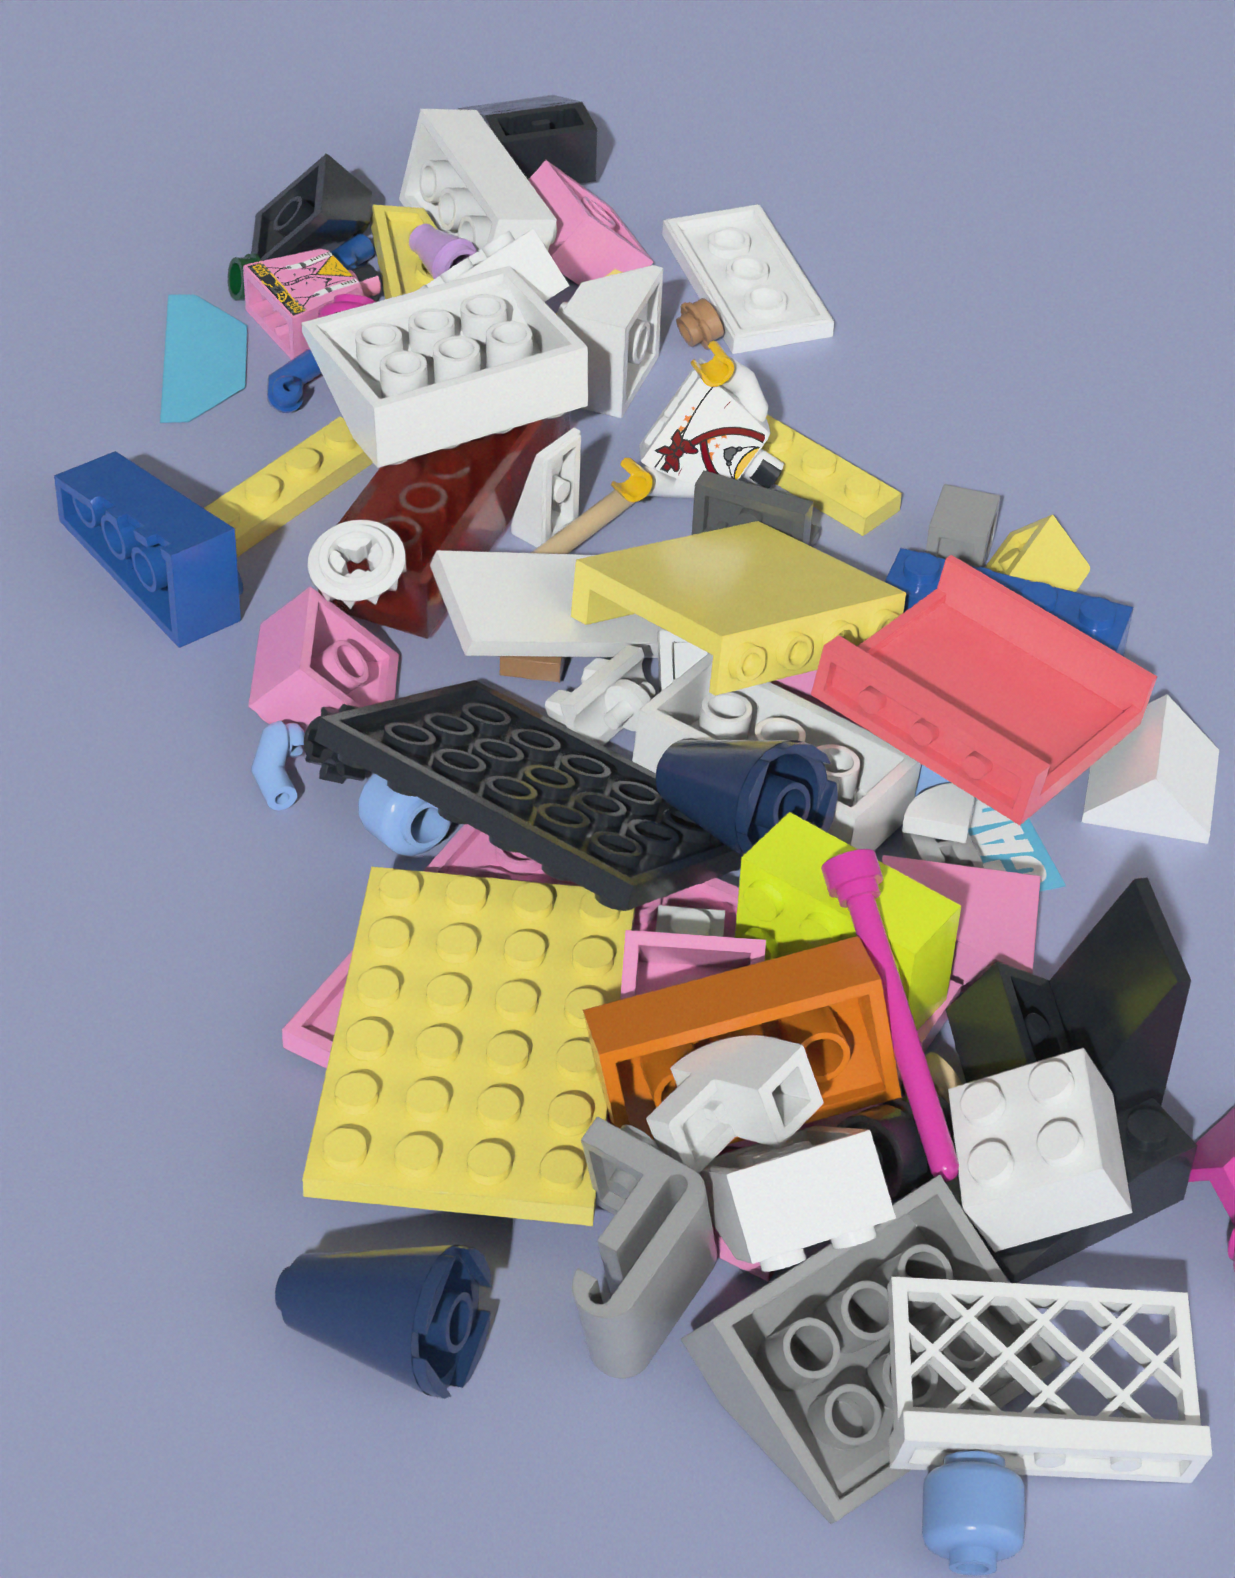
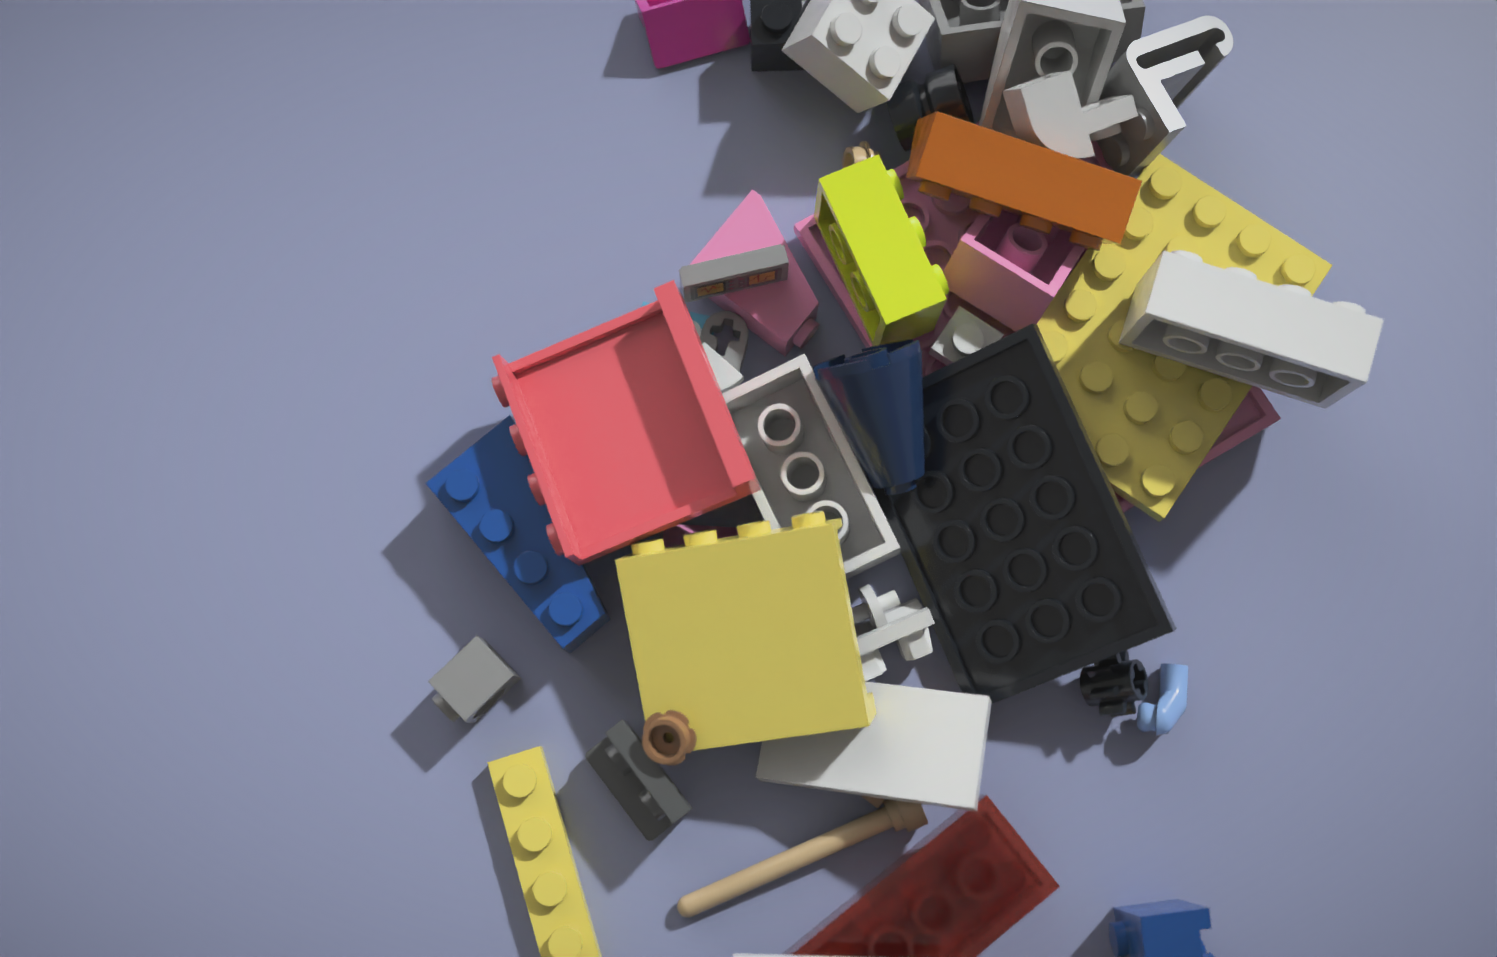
camera: 150 degrees left, 35 degrees up
(317, 659) = (1091, 774): bright pink slope -> none
(355, 542) = (1064, 850): white gear -> none
(386, 984) = (1251, 329): none -> white brick
(394, 1310) = (1314, 154): dark blue cone -> none
(550, 491) = (803, 898): white slope -> none
(708, 425) = (634, 892): torso -> none
(753, 513) = (654, 741): none -> medium nougat plate
(855, 882) = (897, 209): dark pink piece -> none
(988, 855) = (734, 273): none -> light grey tile
(1005, 1023) = (802, 143): black brick -> none
(1041, 555) = (452, 609): light yellow panel -> none
(1126, 996) = (732, 113): black slope -> none
(1156, 778) = (512, 328): white slope -> none

